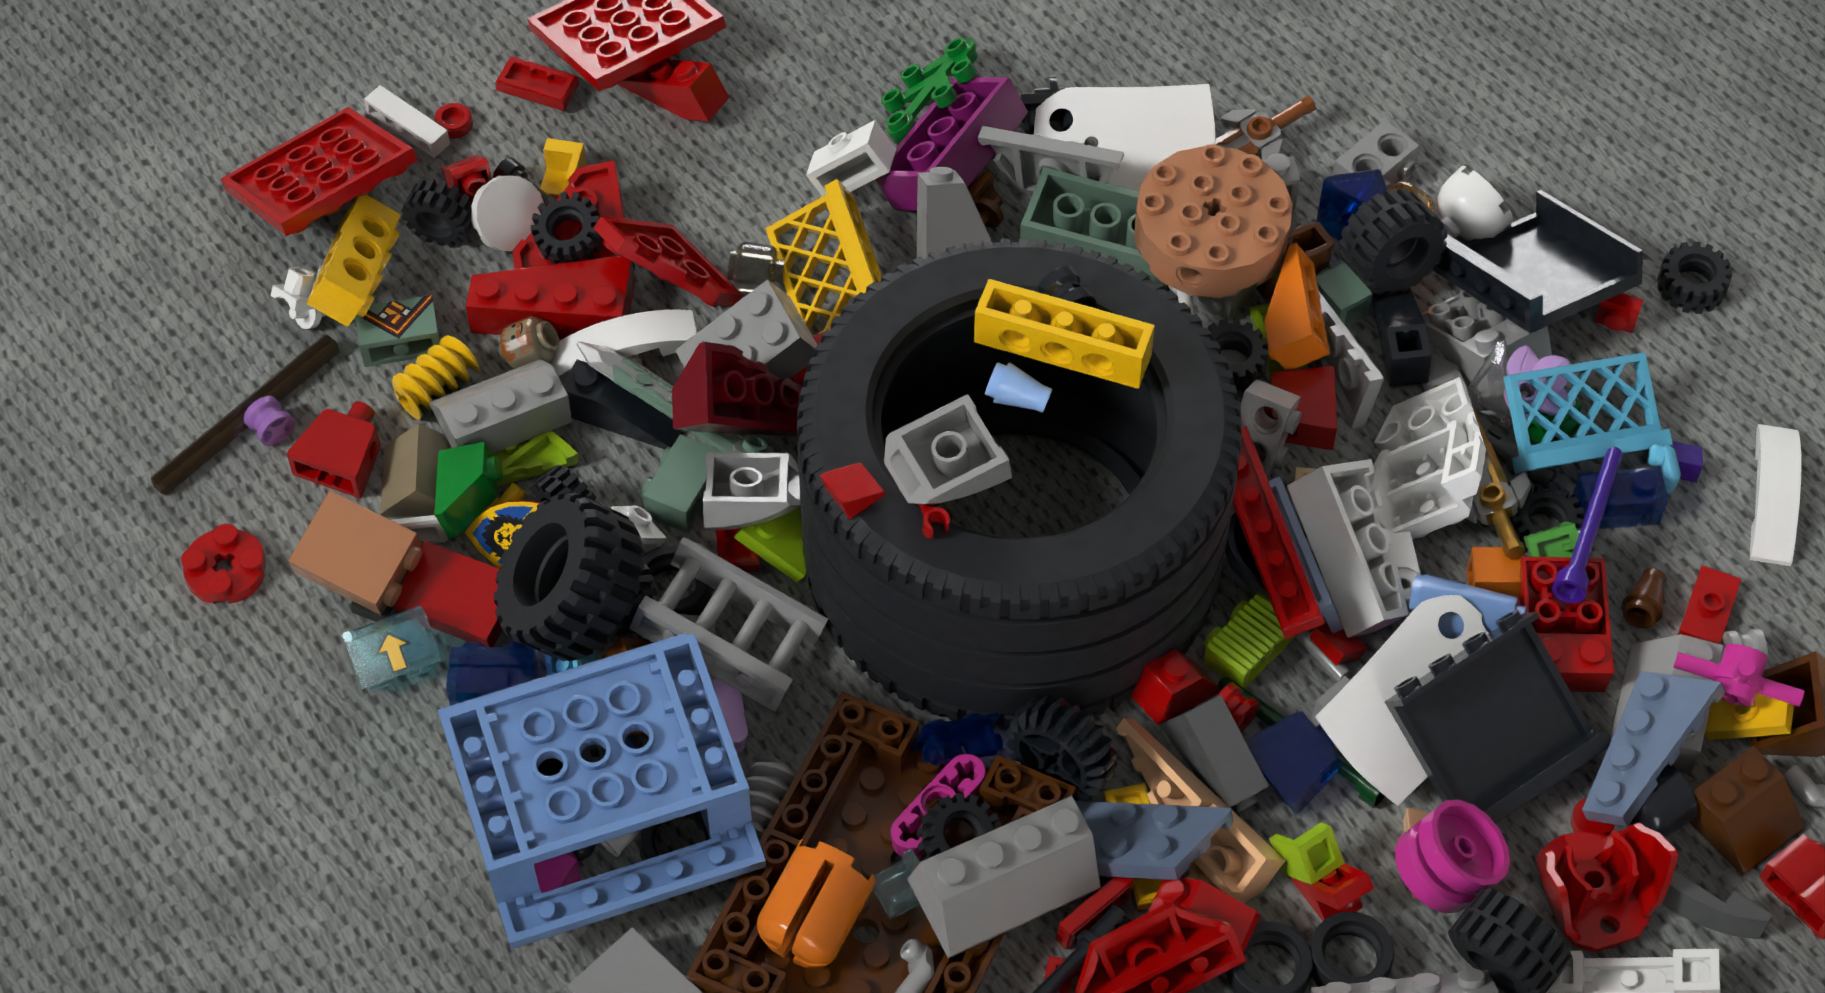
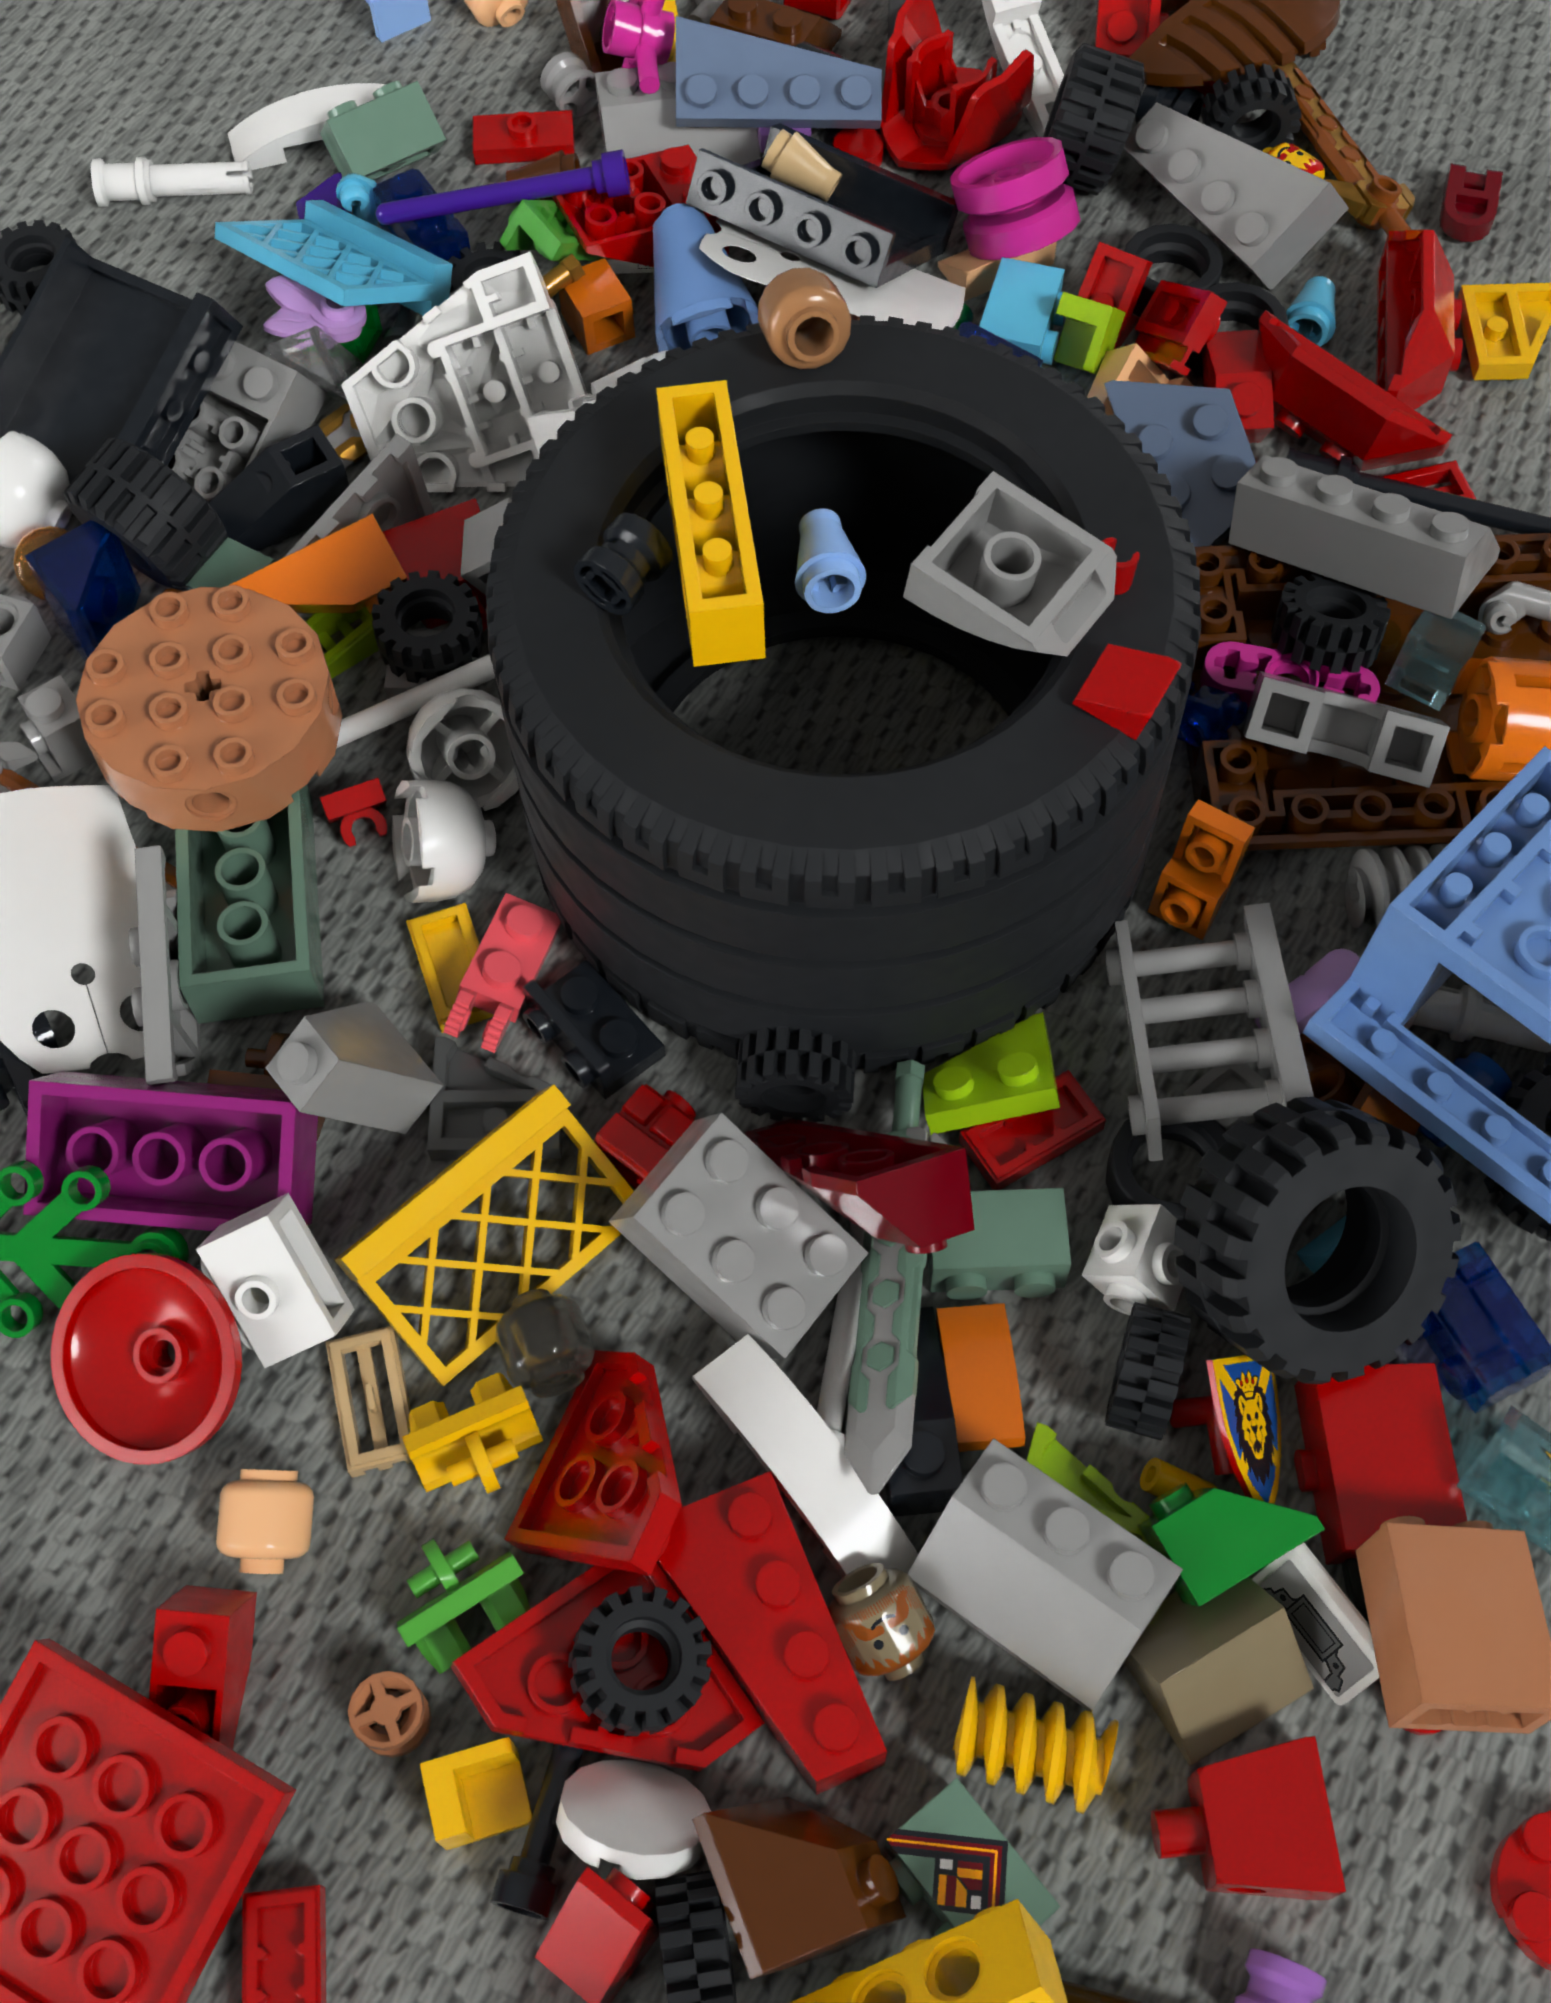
camera: 115 degrees left, 5 degrees up
(440, 252) = (795, 1882): none -> reddish brown slope
(618, 142) = (381, 1701): none -> nougat wheel
(620, 441) = (981, 1375): none -> orange slope
(656, 192) = (434, 1623): none -> bright green hips
(724, 223) = (474, 1439): none -> yellow hips
(740, 134) = (265, 1519): none -> light nougat head
(749, 489) = (1000, 1091): light grey slope -> none
(775, 204) = (383, 1455): none -> tan tile
(834, 678) = (1200, 869): none -> orange slope
(847, 106) = (116, 1365): none -> red dish
(902, 772) = (1346, 728): none -> light grey arch
(1202, 452) = (804, 318): none -> medium nougat head
(1267, 895) = (1178, 323): none -> red plate
(1360, 827) = (1025, 306): none -> medium azure brick
(1557, 735) = (800, 166): none -> tan cone
(1729, 503) = (383, 132): none -> sand green brick
(1757, 363) = (148, 181): none -> white pin

